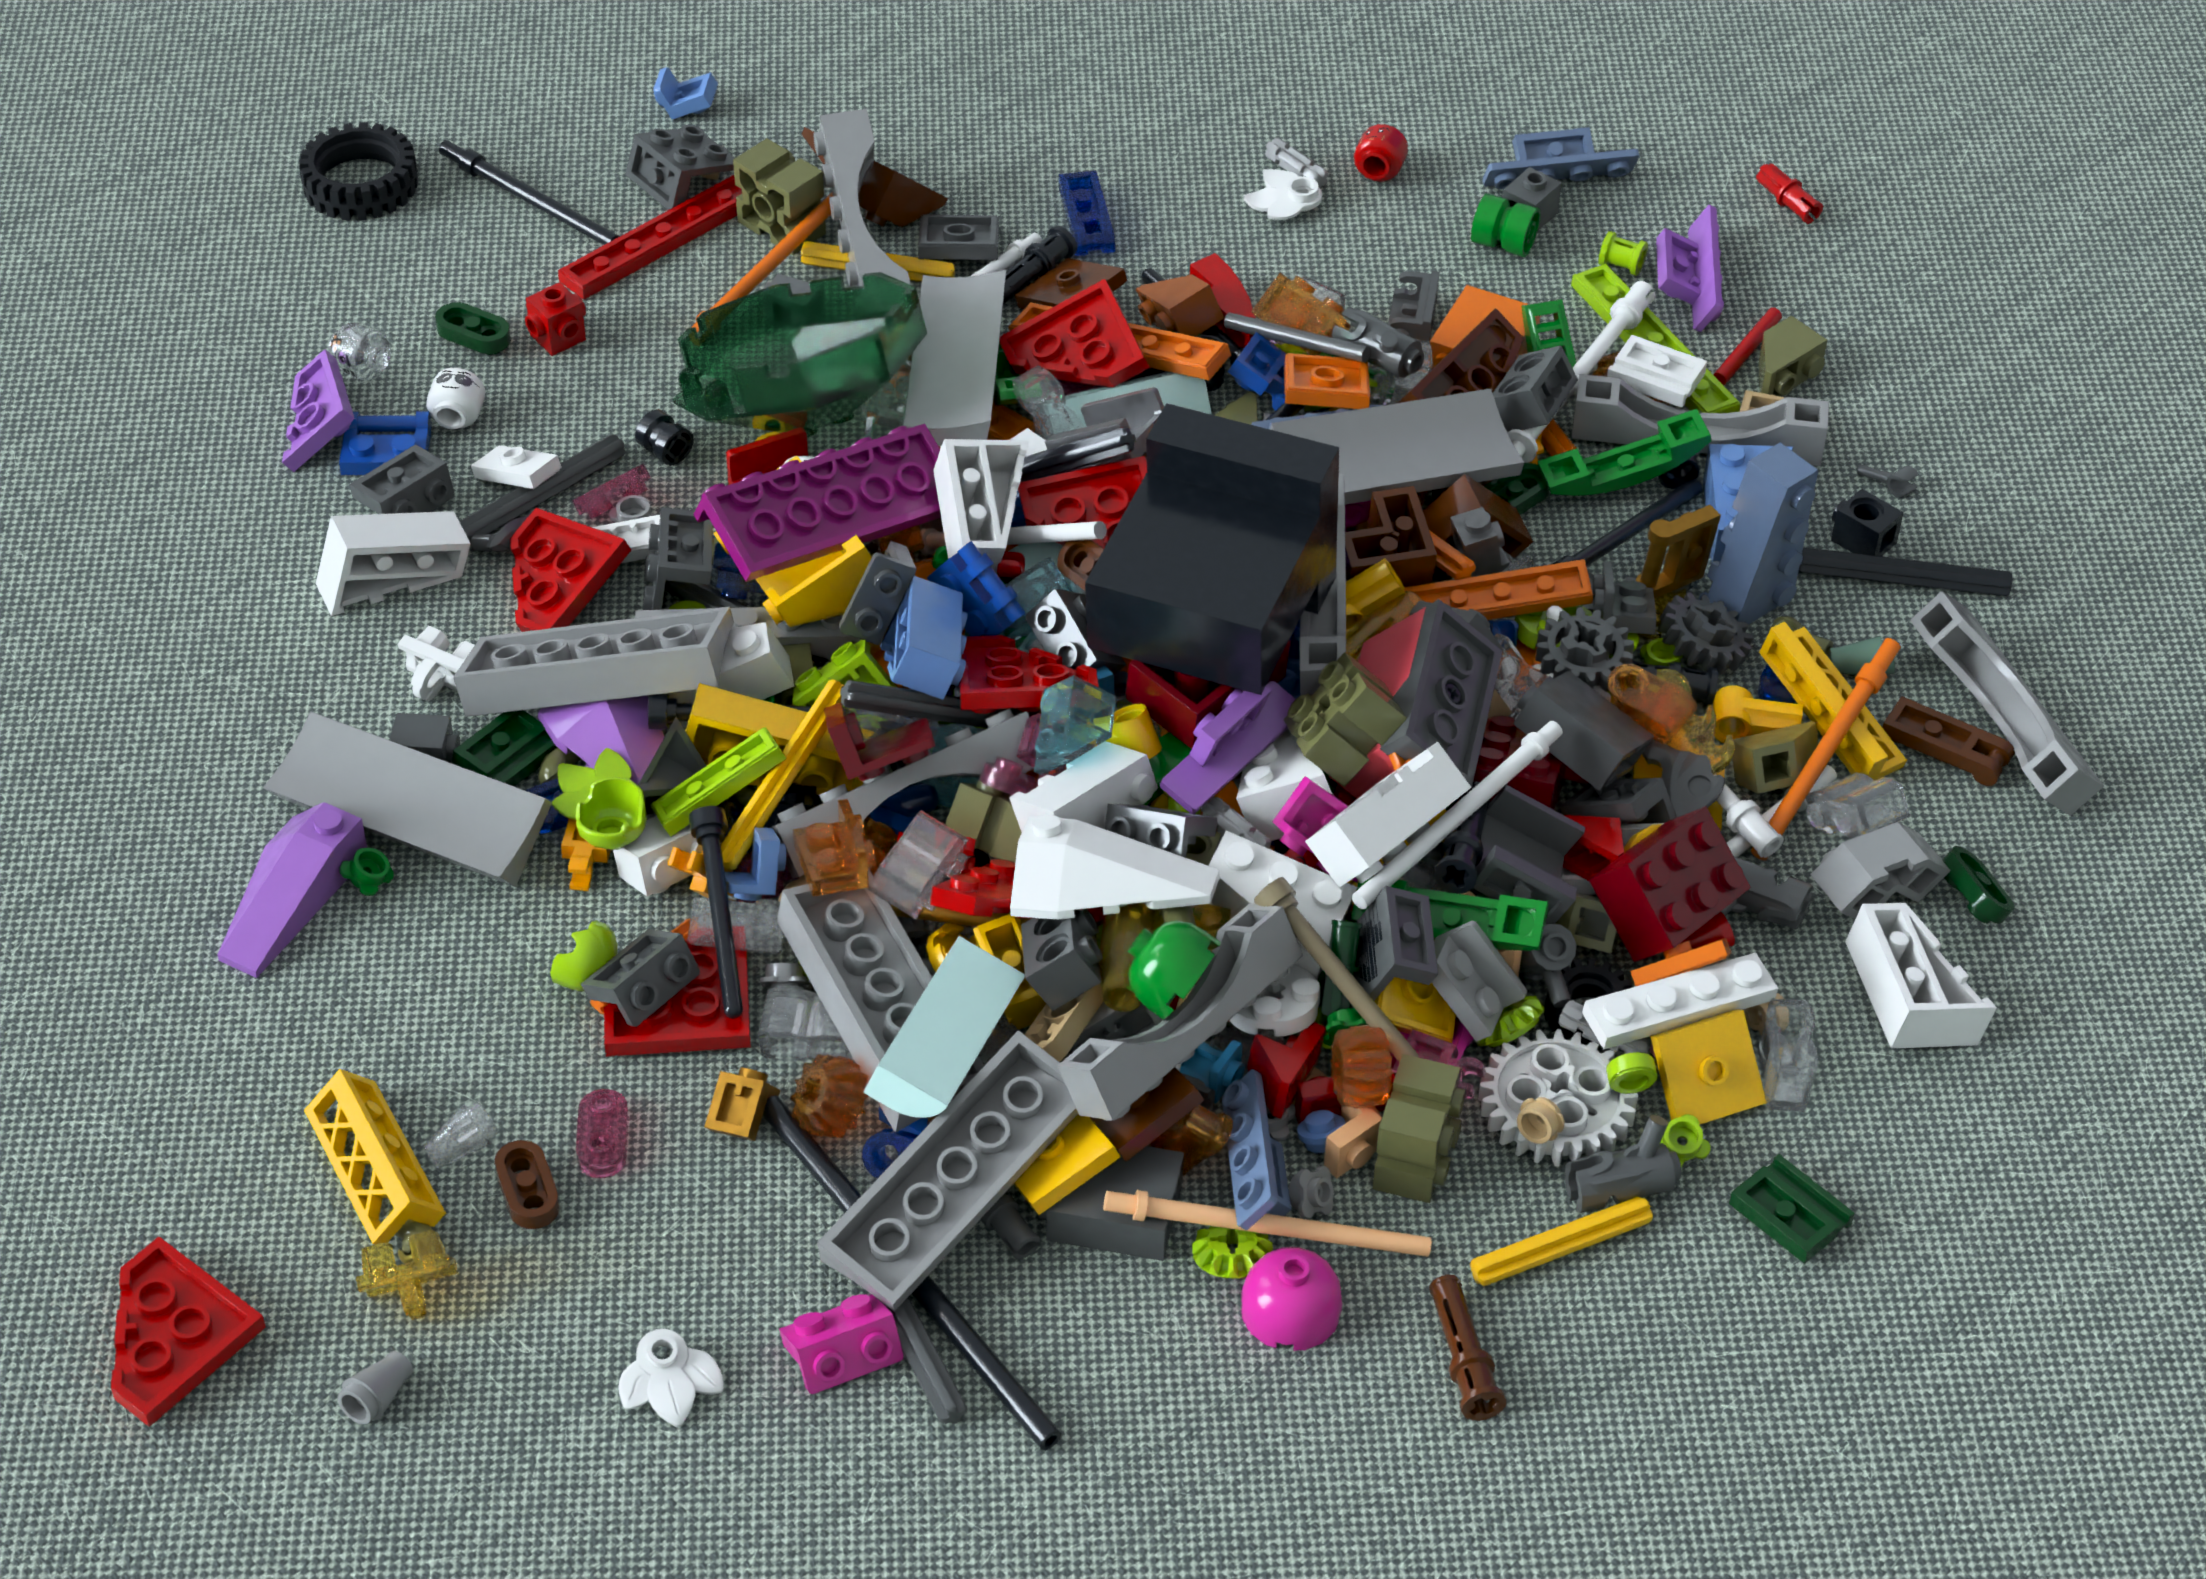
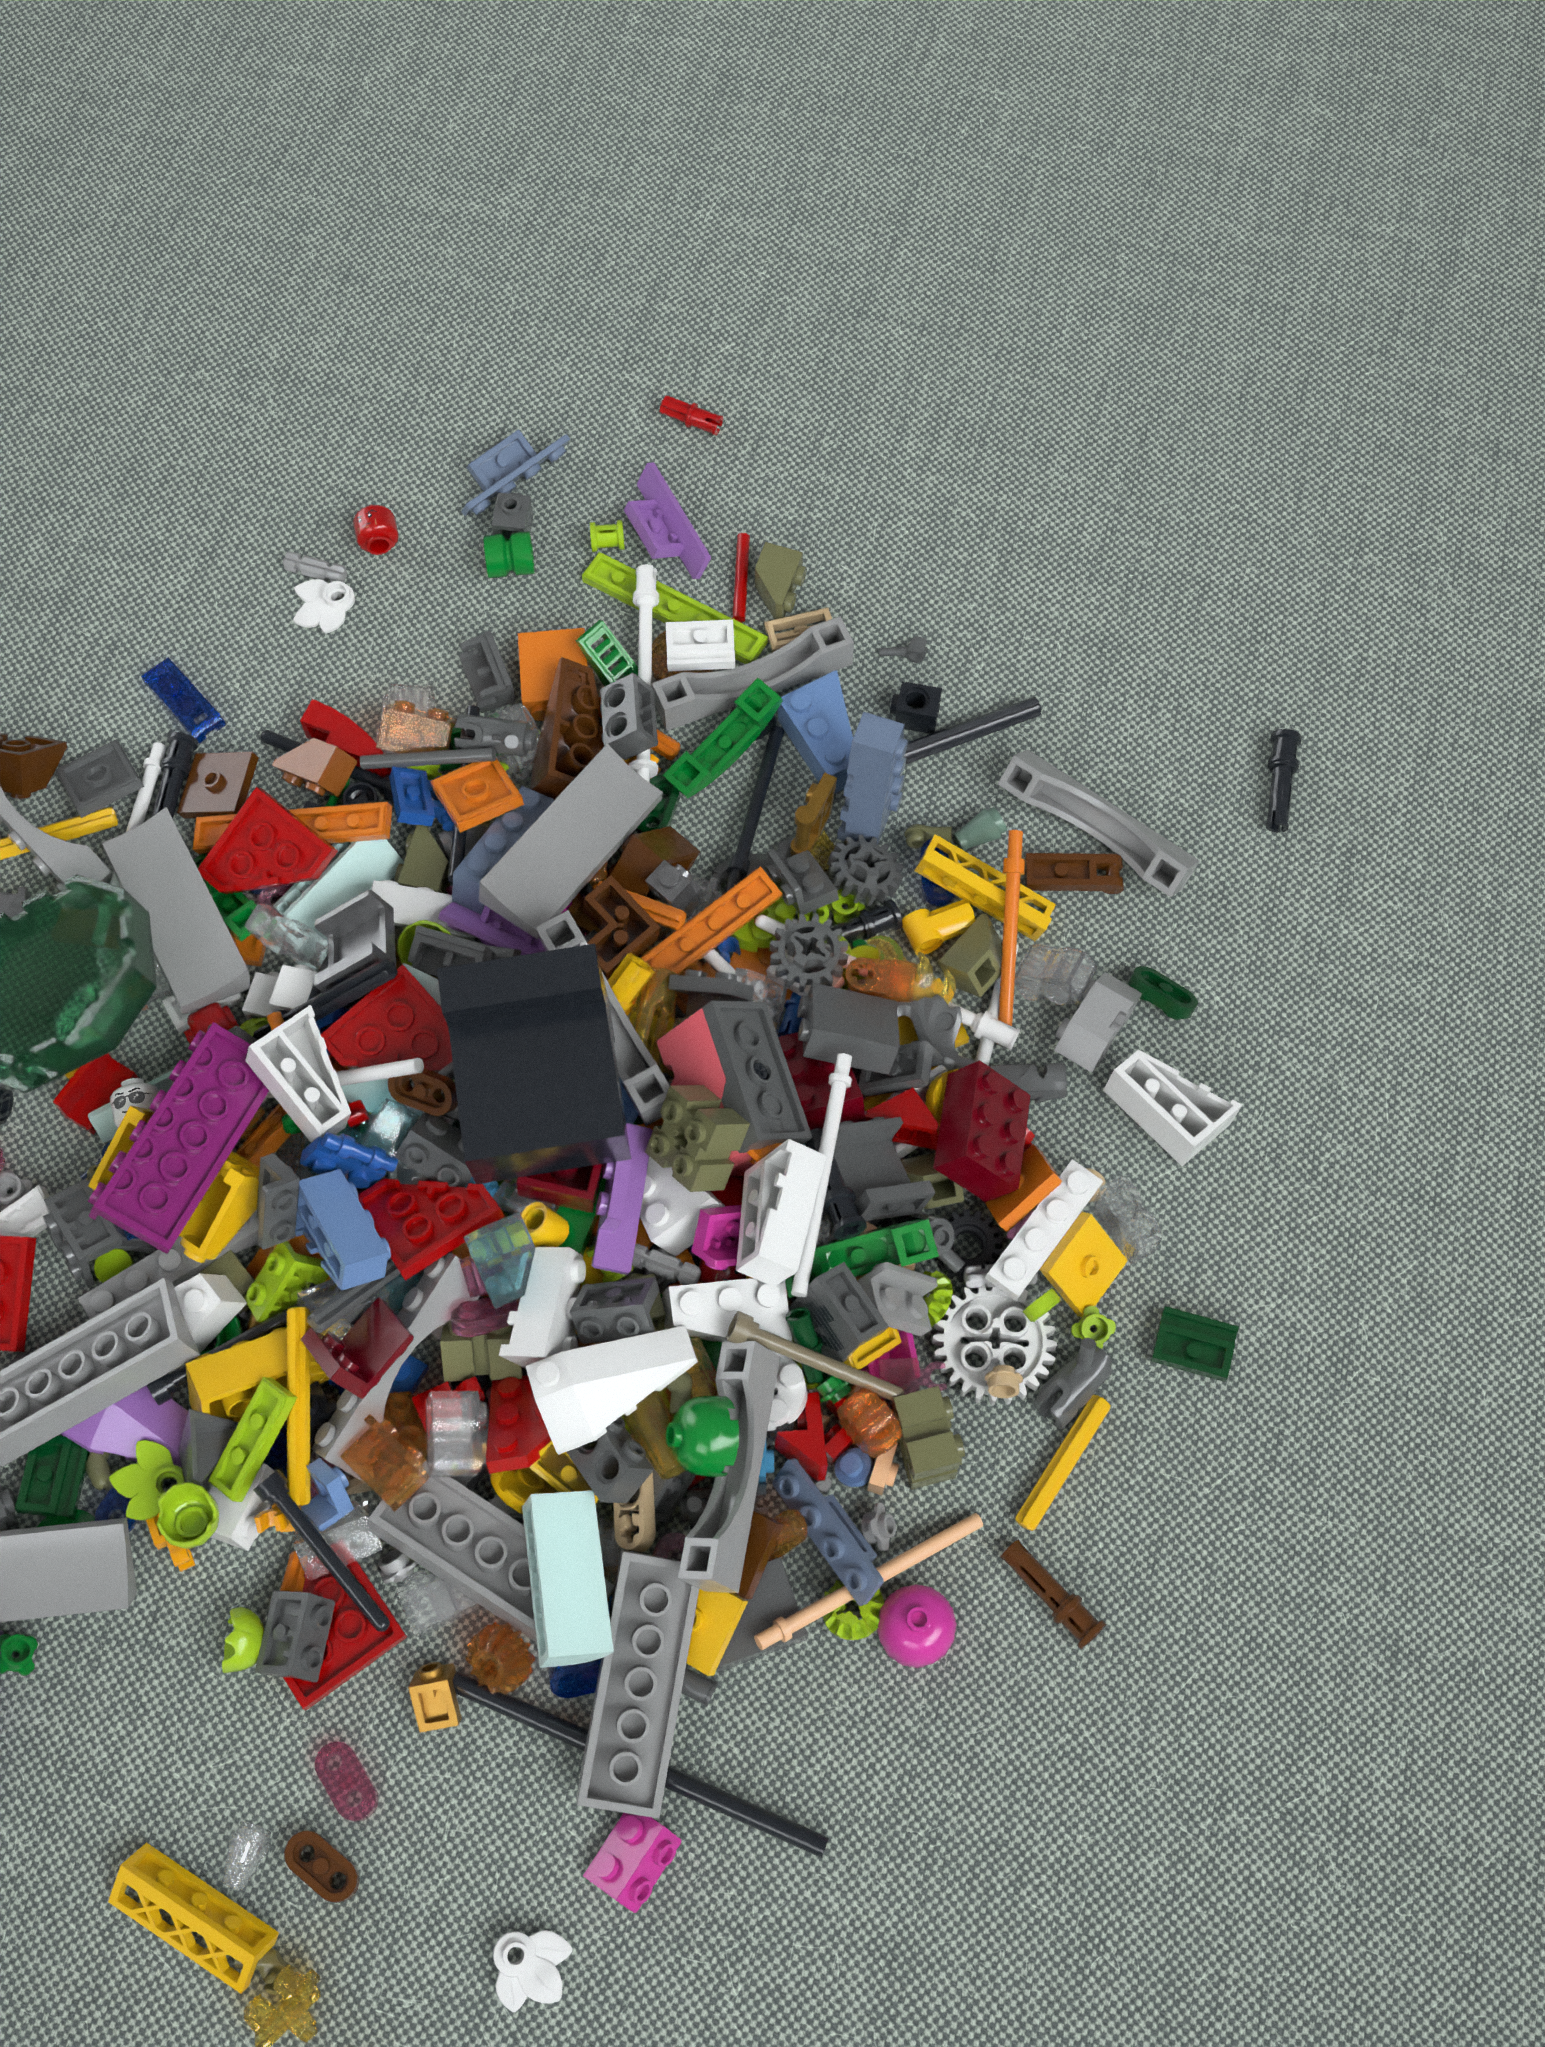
camera: 30 degrees left, 20 degrees up
(928, 1365) = (705, 1840): dark grey axle -> none

